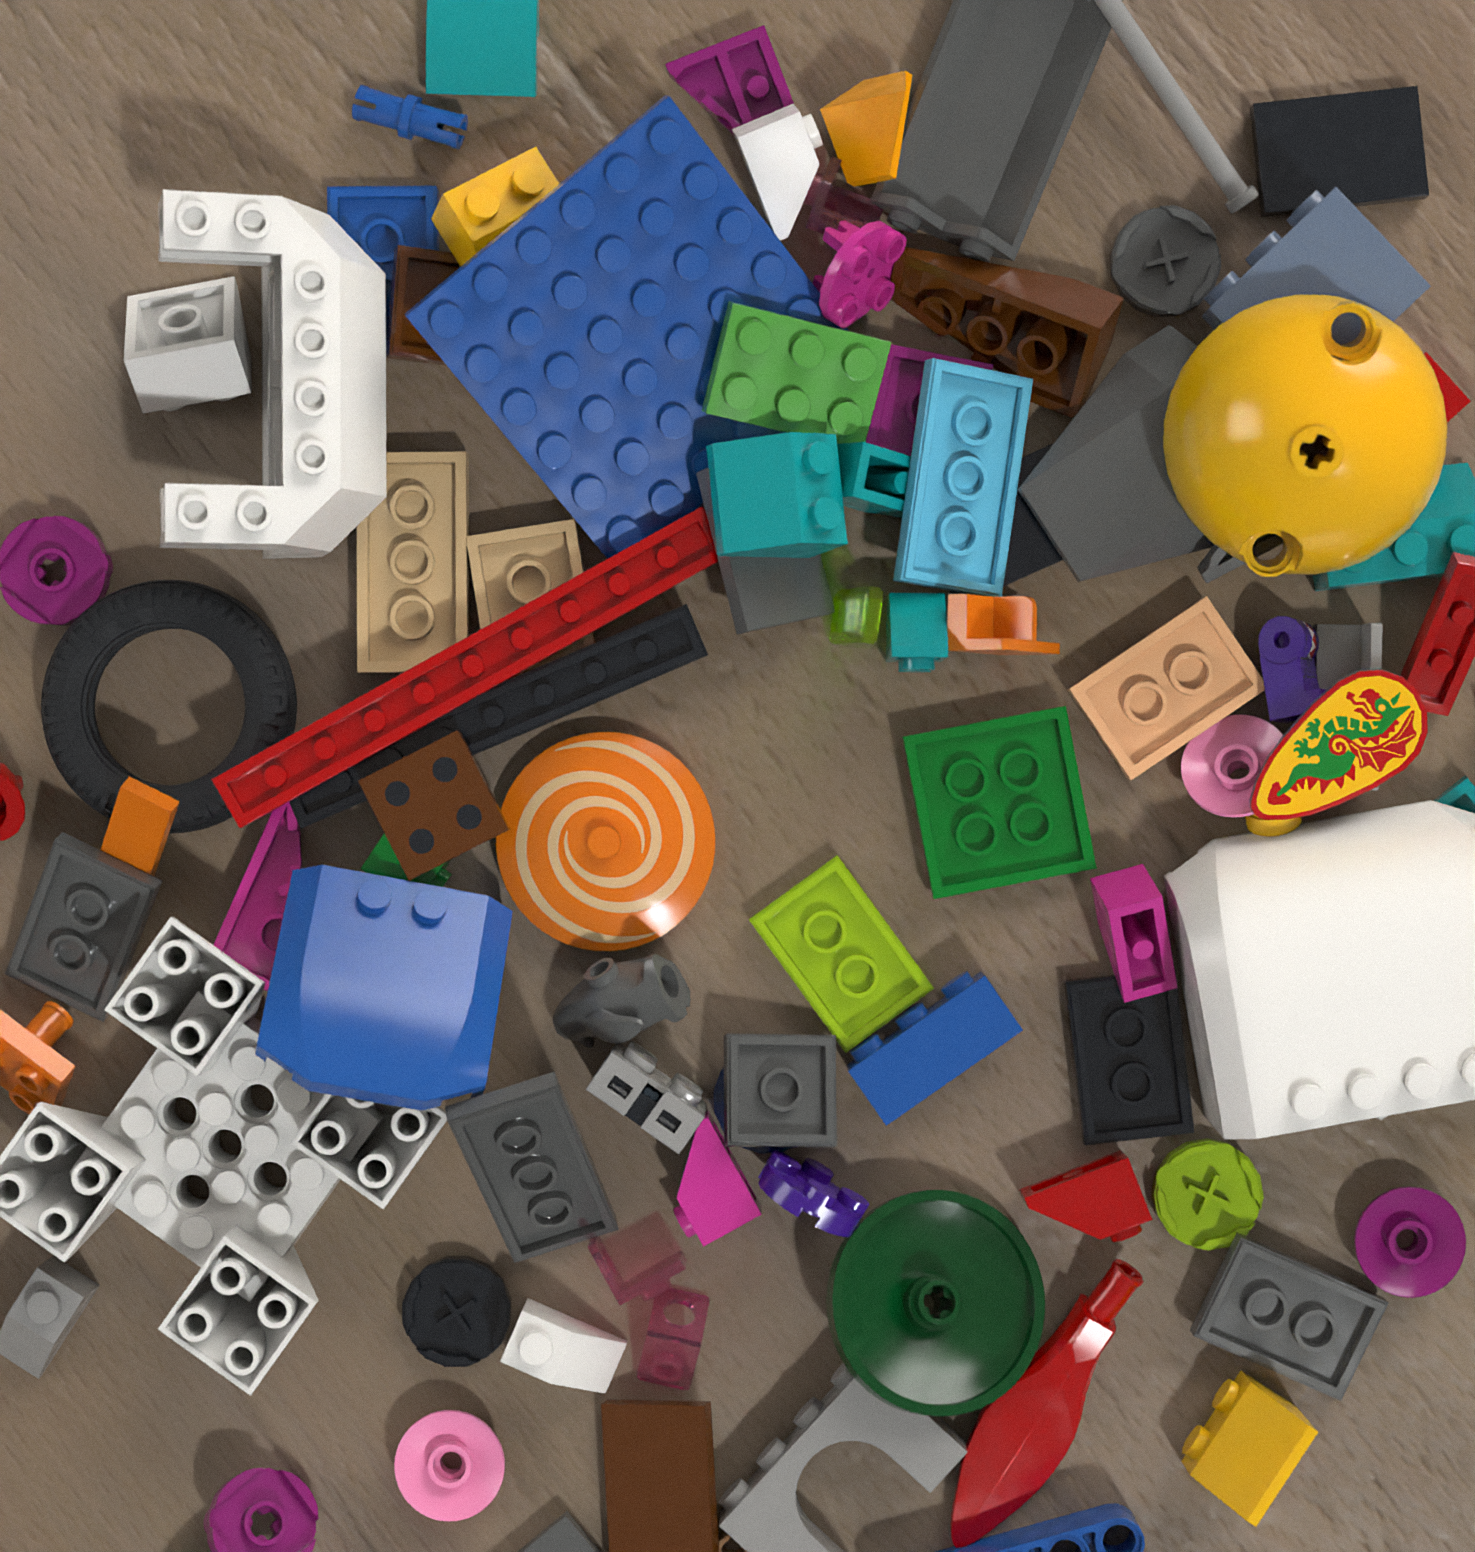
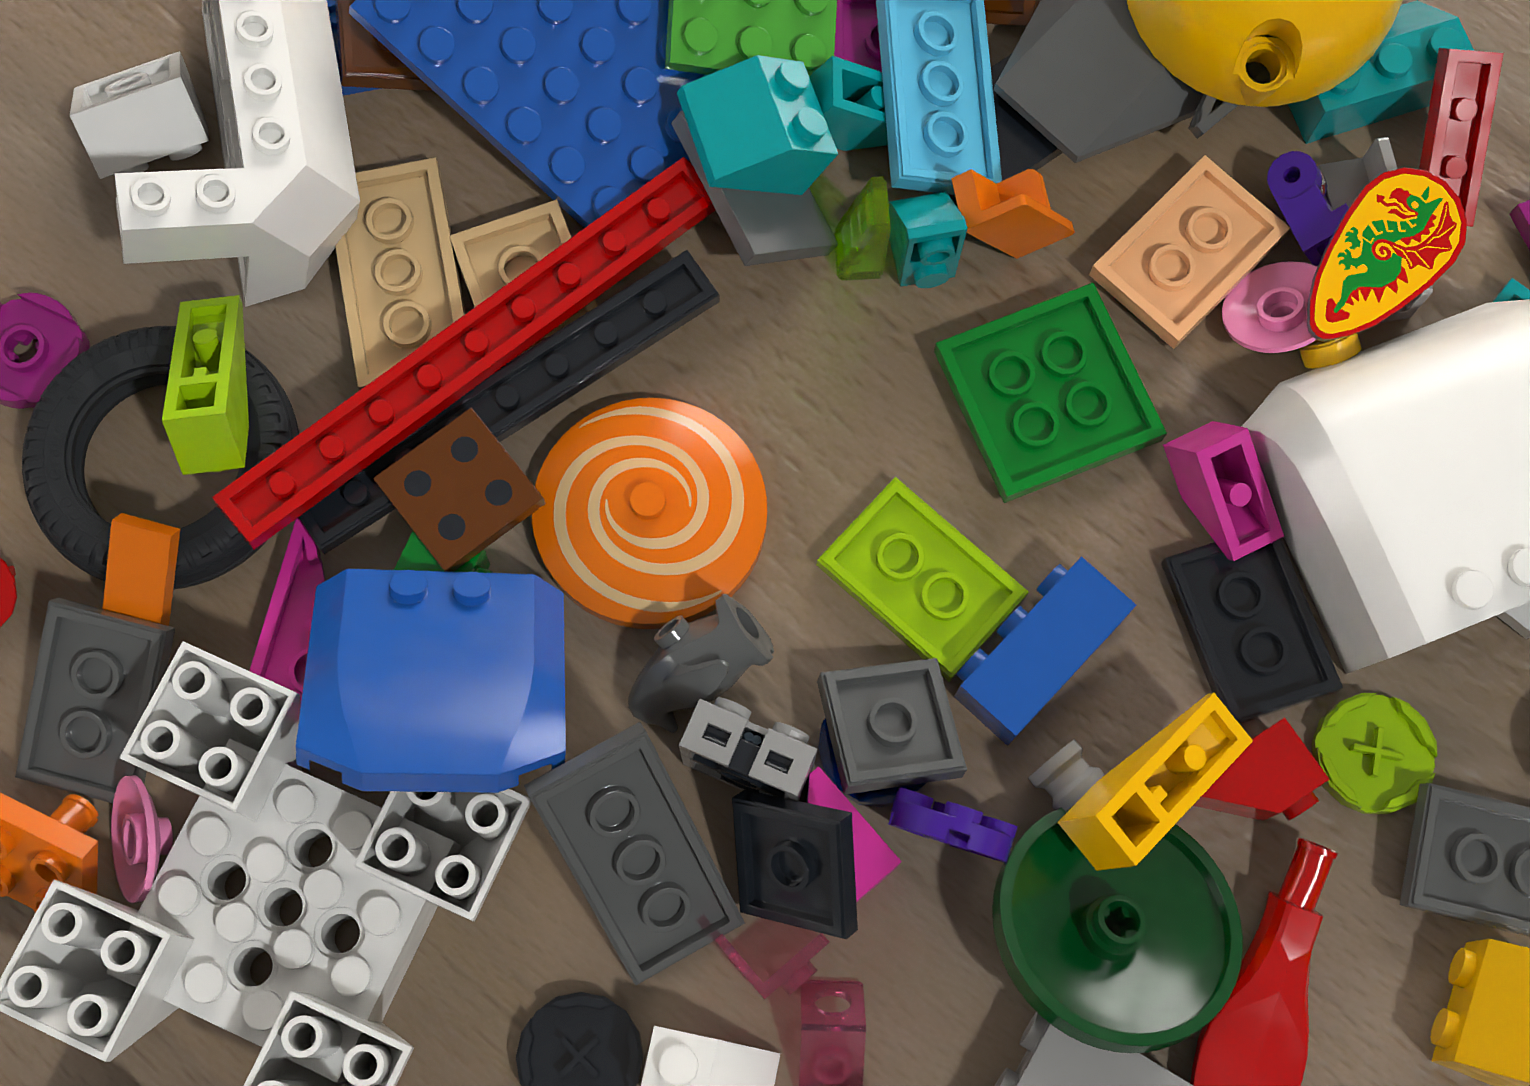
camera: 10 degrees left, 15 degrees down
(105, 1059) = (137, 838): none -> bright pink dish
(222, 665) = (208, 387): none -> lime slope
(668, 1199) = (795, 863): none -> black tile
(926, 1164) = (1066, 776): none -> light grey wheel
(994, 1200) = (1155, 786): none -> yellow slope

